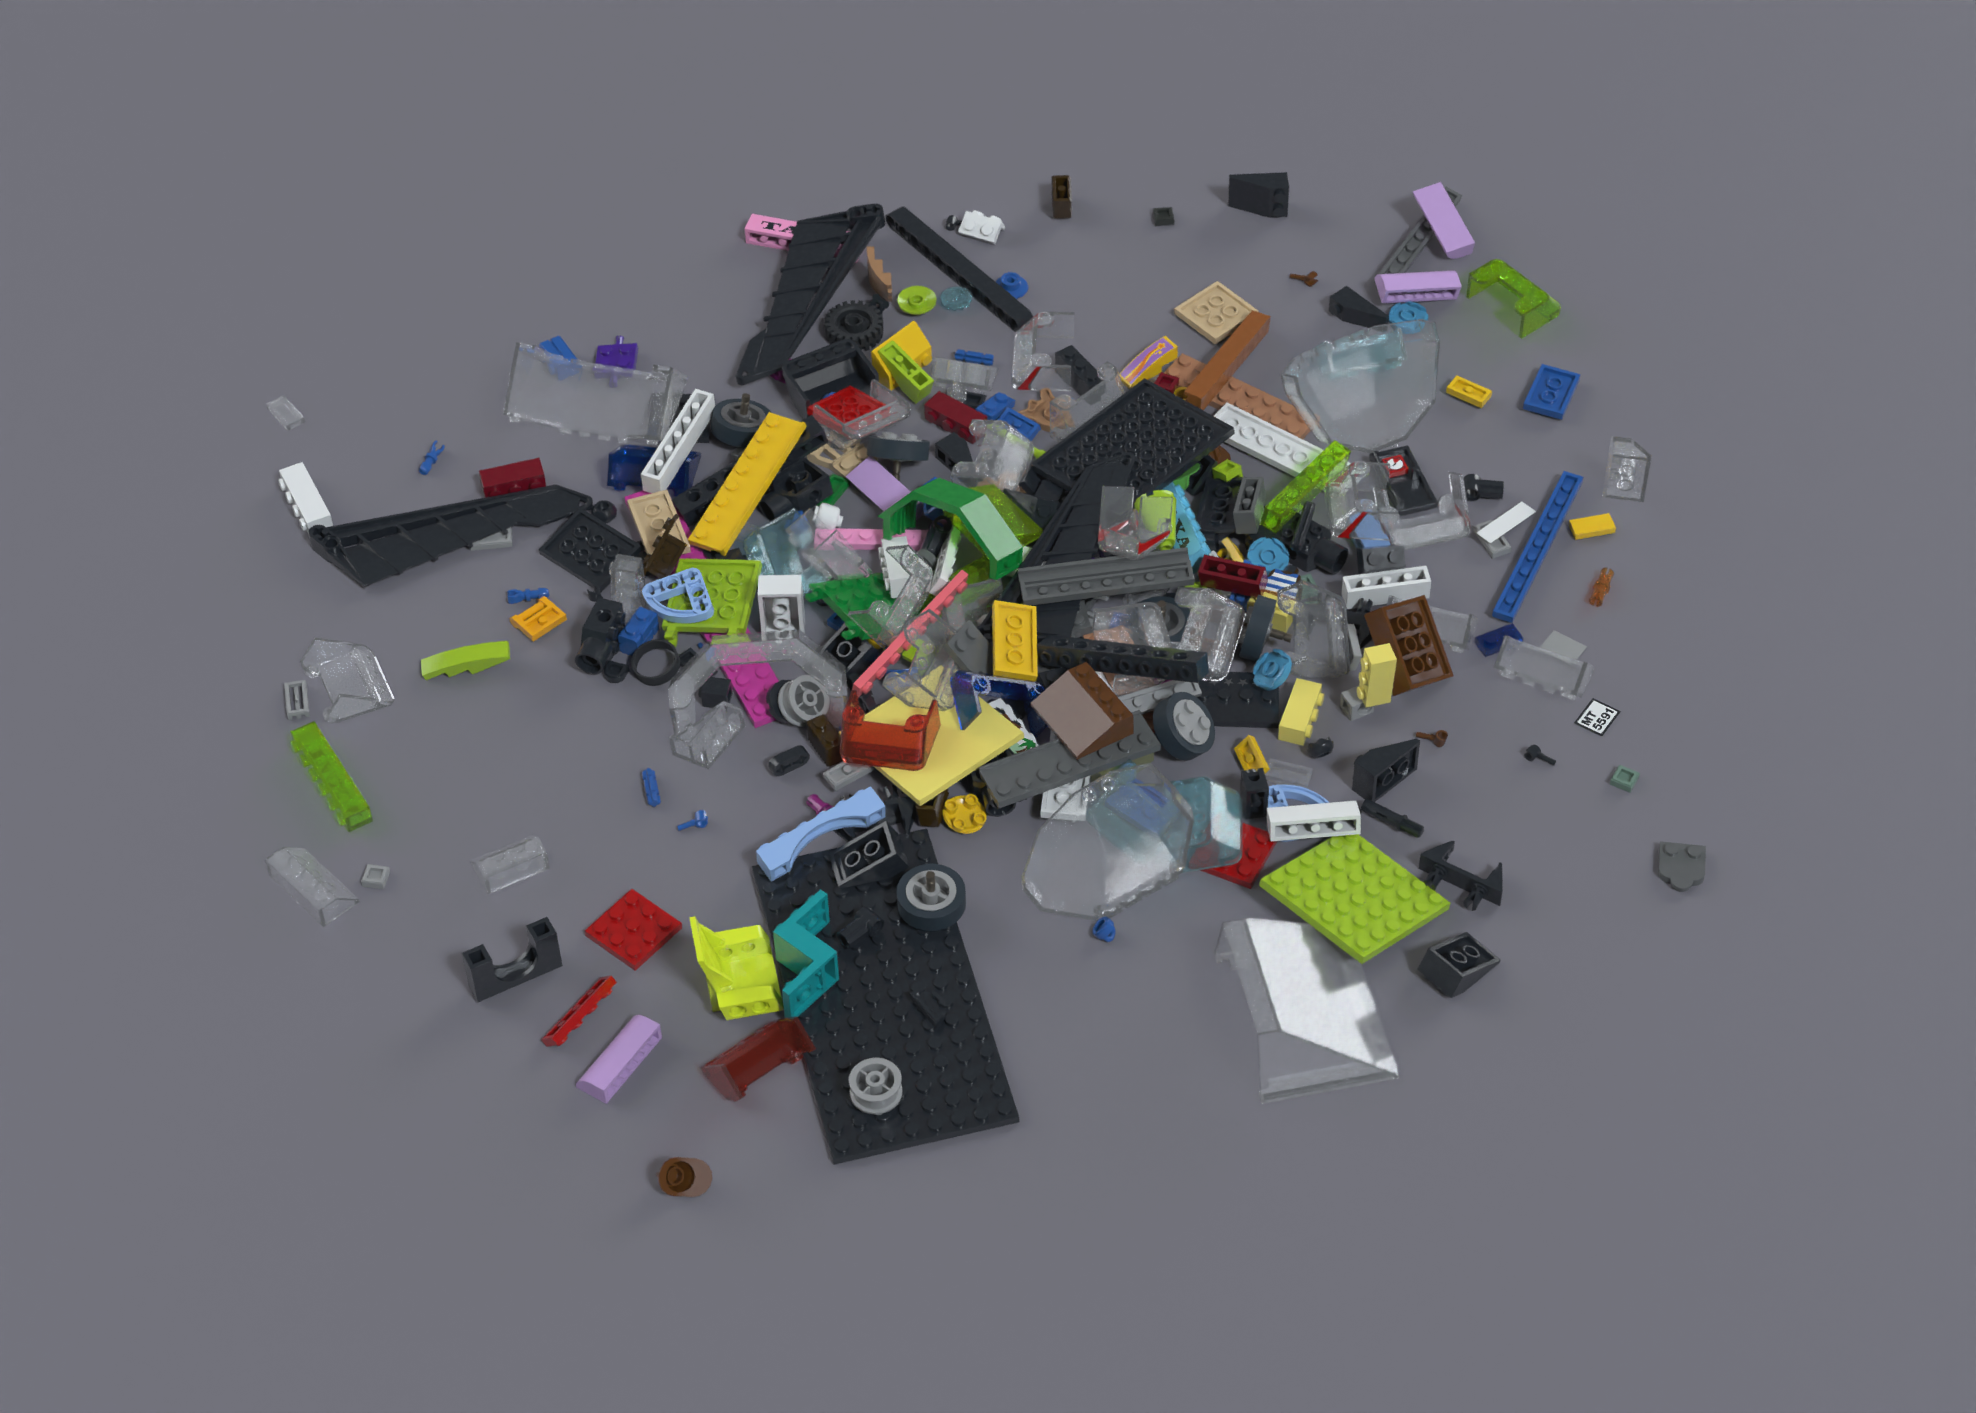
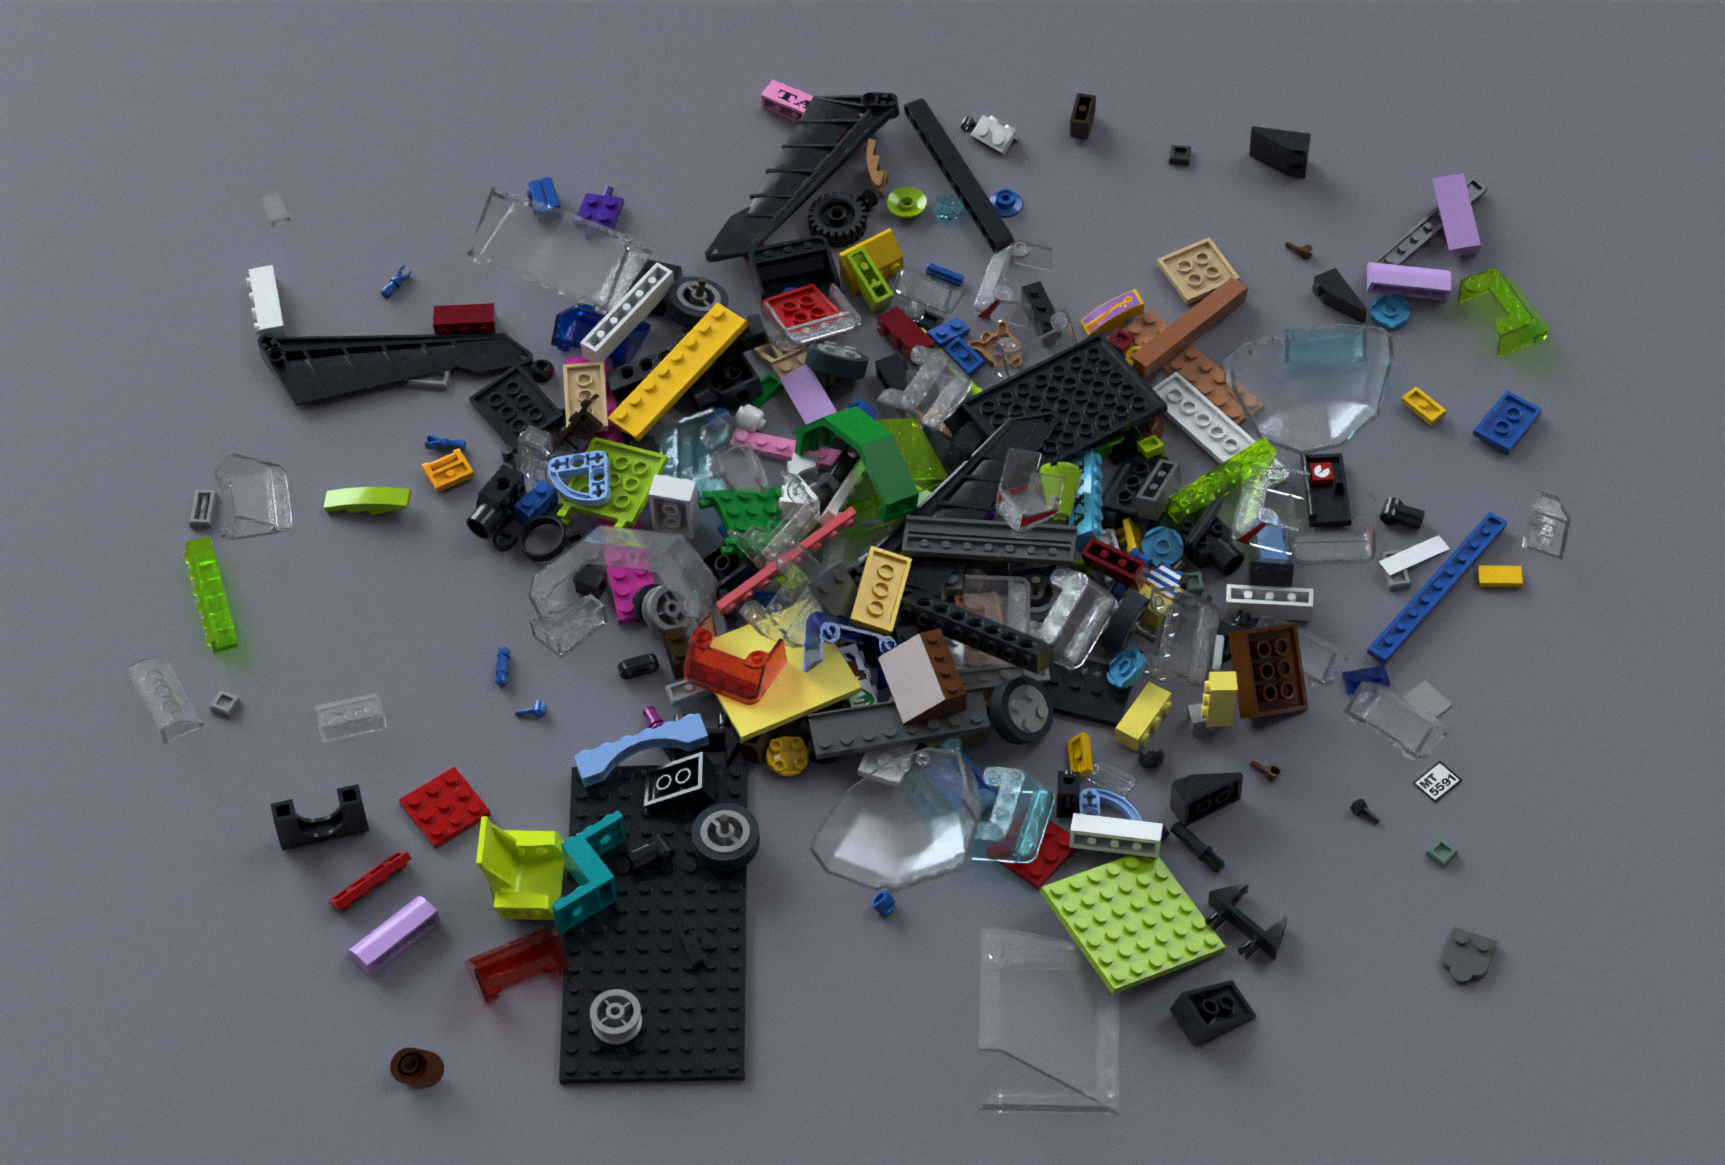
camera: 15 degrees right, 5 degrees up
(1601, 587) = (1487, 644): clear orange pin -> none

